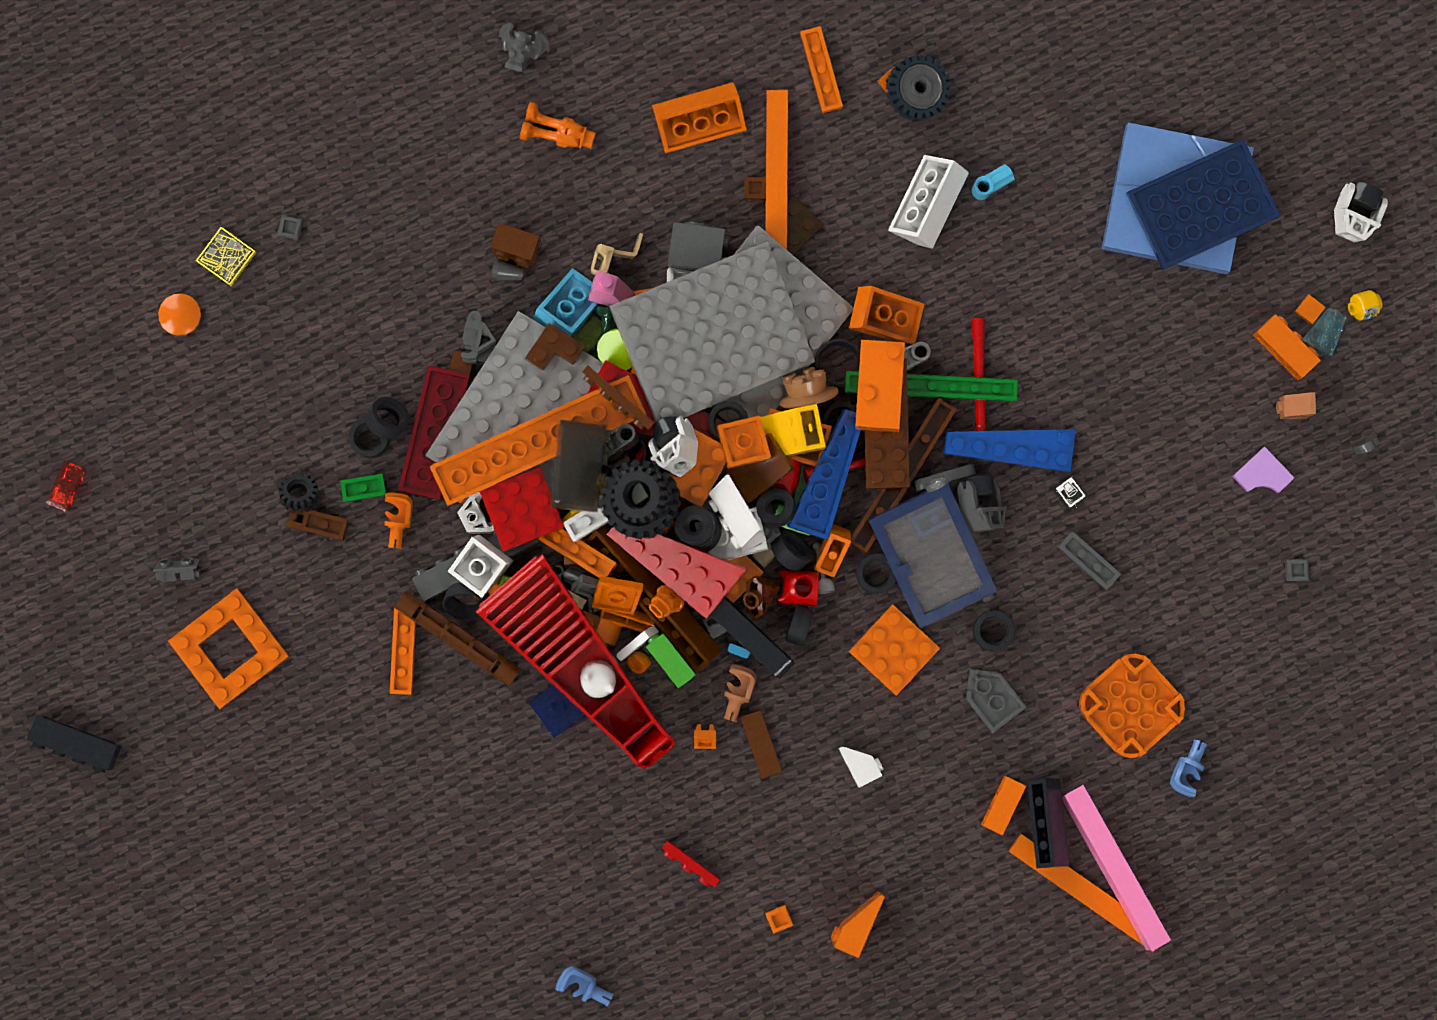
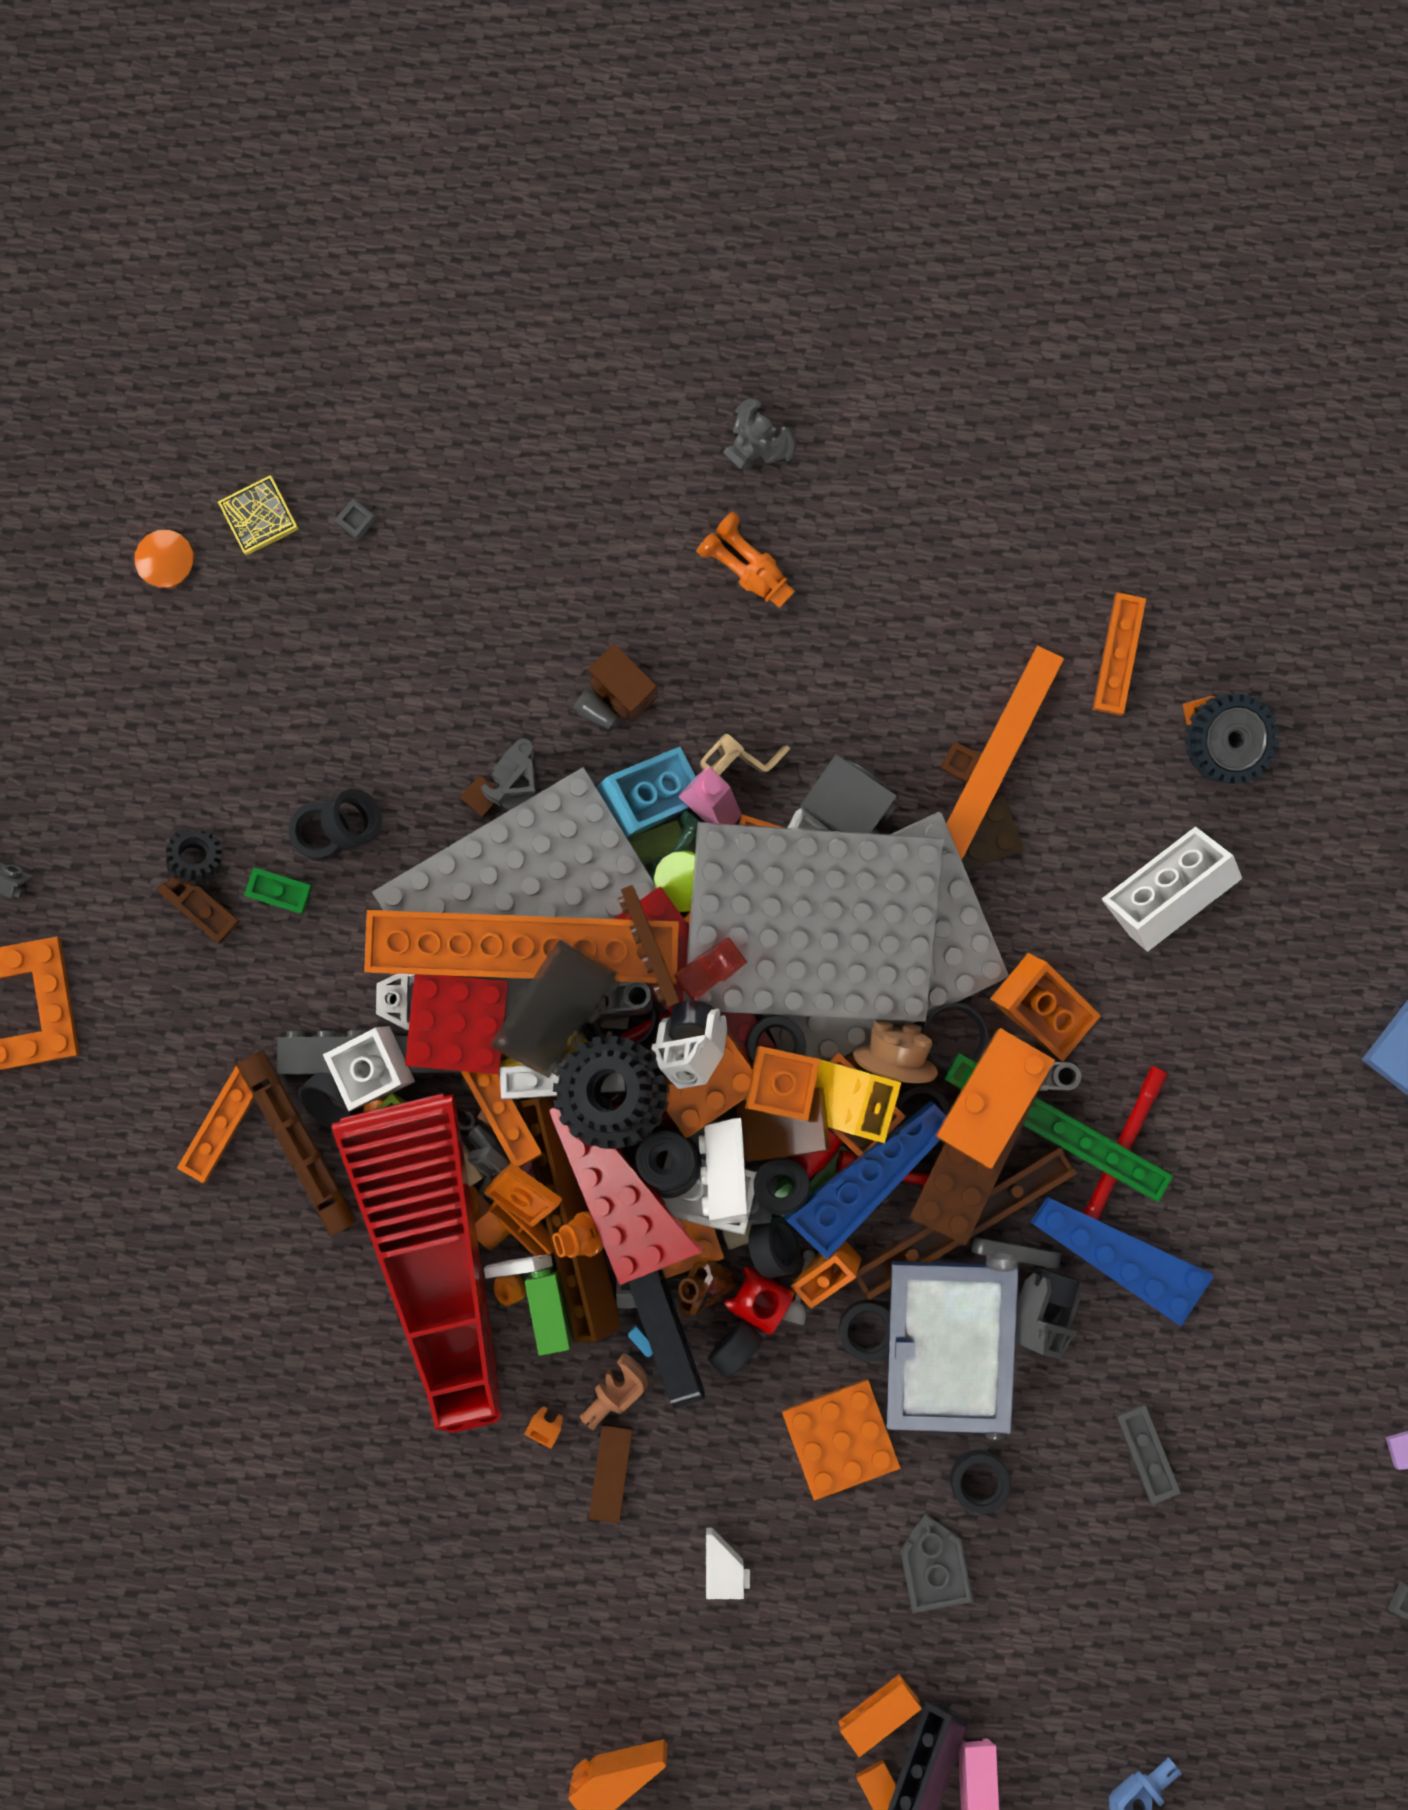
camera: 25 degrees right, 0 degrees up
(401, 520) = (300, 955): orange piece -> none
(435, 407) = (418, 836): dark red plate -> none
(553, 342) = (605, 829): reddish brown plate -> none
(555, 710) = (369, 1297): clear blue tile -> none
(587, 985) = (232, 1671): medium blue piece -> none
(598, 678) = (442, 1290): white piece -> none
(662, 393) = (710, 968): none -> clear red slope
(689, 864) = (442, 1583): red plate -> none
(699, 117) = (935, 637): orange slope -> none
(779, 919) = (520, 1710): orange tile -> none
(993, 181) = (1266, 905): medium azure piece -> none
(1070, 494) = (1166, 1355): clear smoke brick -> none
(1131, 705) = (1109, 1670): orange tile -> none

